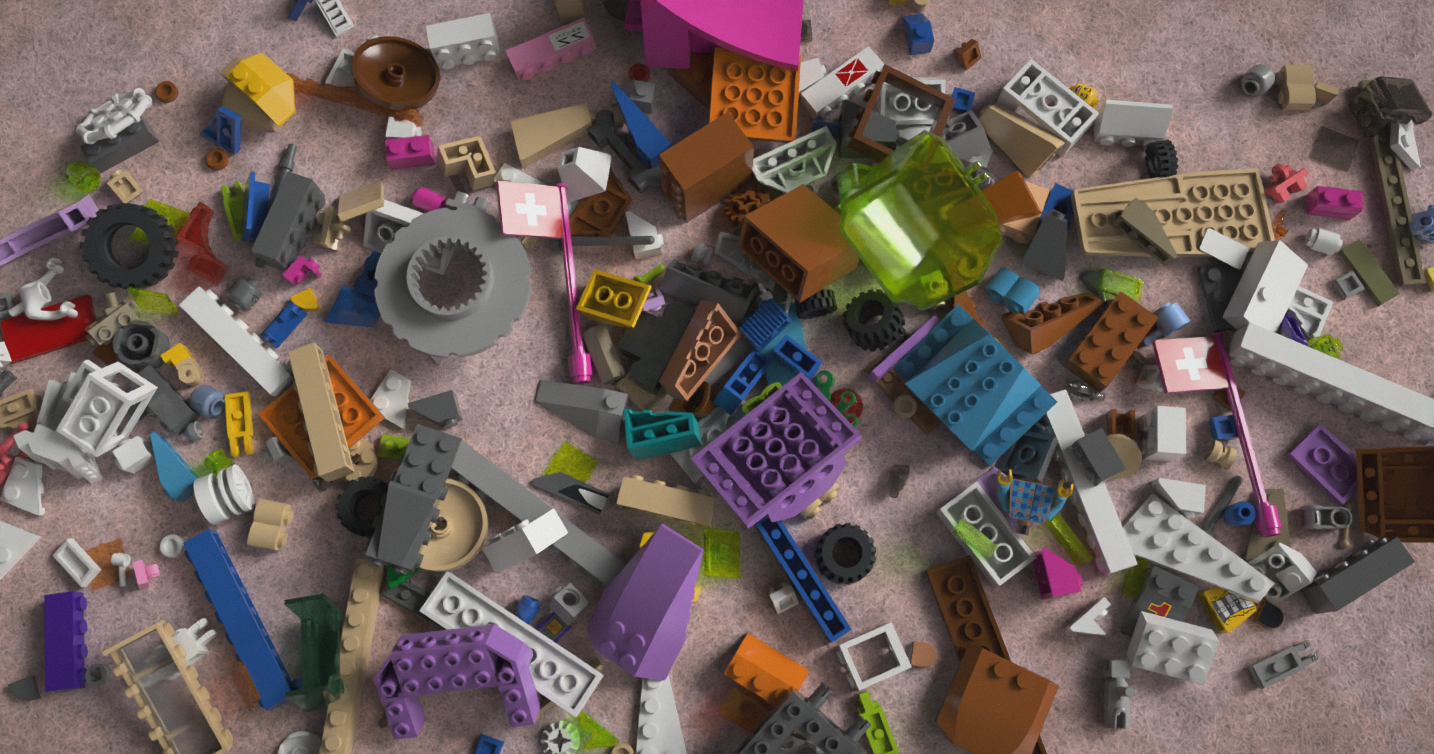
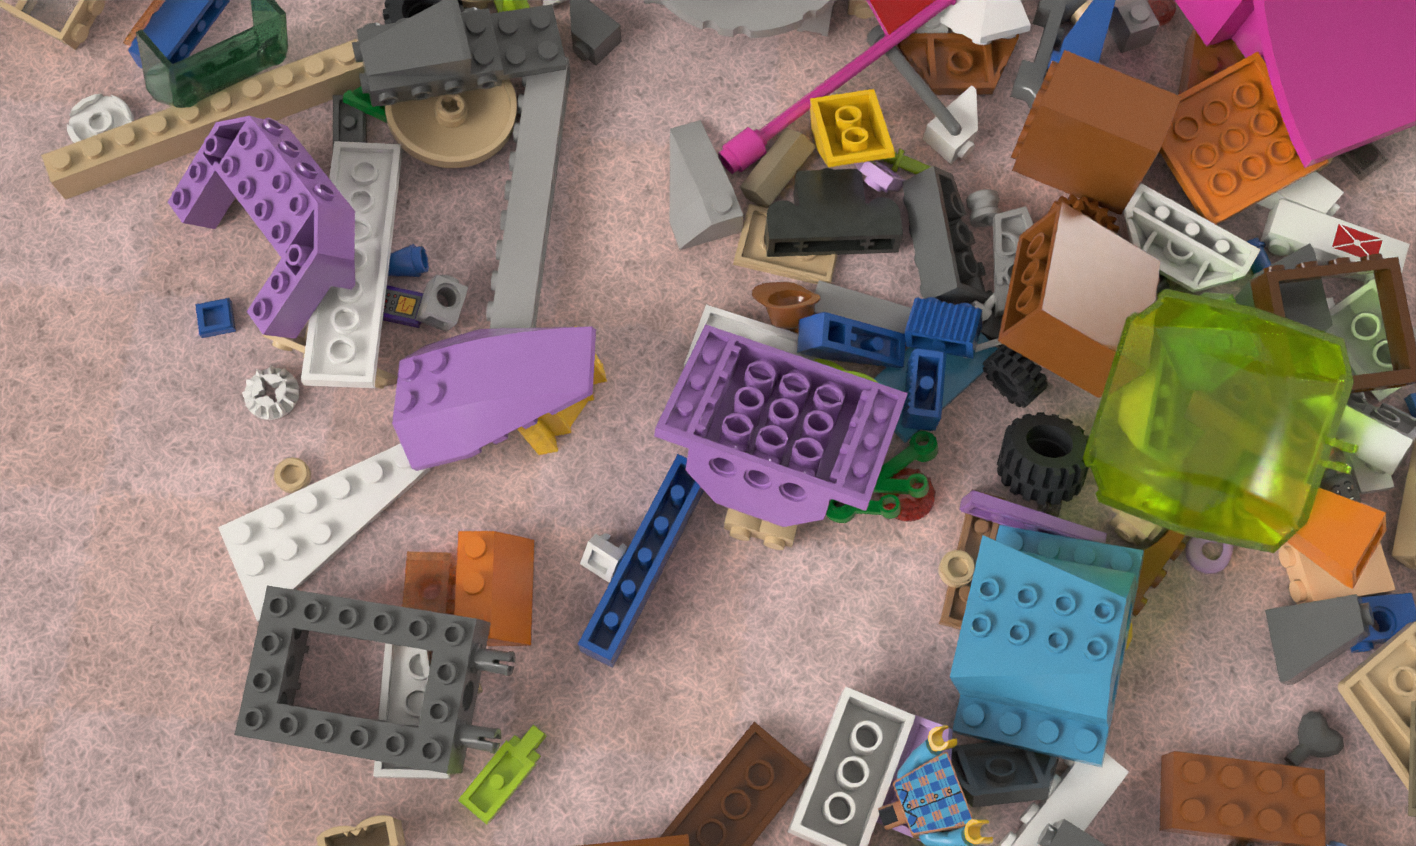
camera: 55 degrees right, 5 degrees down
(524, 541) = (487, 200): white wedge -> none
(572, 462) = (615, 215): clear neon green piece -> none
(573, 491) = (586, 233): sticker -> none
(601, 736) = (303, 430): clear neon green slope -> none
(660, 433) = (718, 281): teal wedge -> none
(666, 503) = (636, 339): tan brick -> none
(699, 350) = (856, 267): nougat wedge -> none
(722, 554) = (613, 445): clear neon green slope -> none
(859, 539) = (716, 571): black tyre -> none
(895, 647) = (626, 737): white window -> none
(897, 479) = (853, 616): clear smoke piece -> none
(922, 654) = (637, 784): nougat tile -> none
(974, 538) = (834, 754): clear neon green piece -> none
(1012, 290) = (1215, 621): dark azure brick -> none
(1047, 324) = (1194, 693): dark orange wedge -> none
(1082, 392) = (1142, 802): clear smoke piece -> none
(1114, 282) = (1342, 782): clear neon green tile -> none

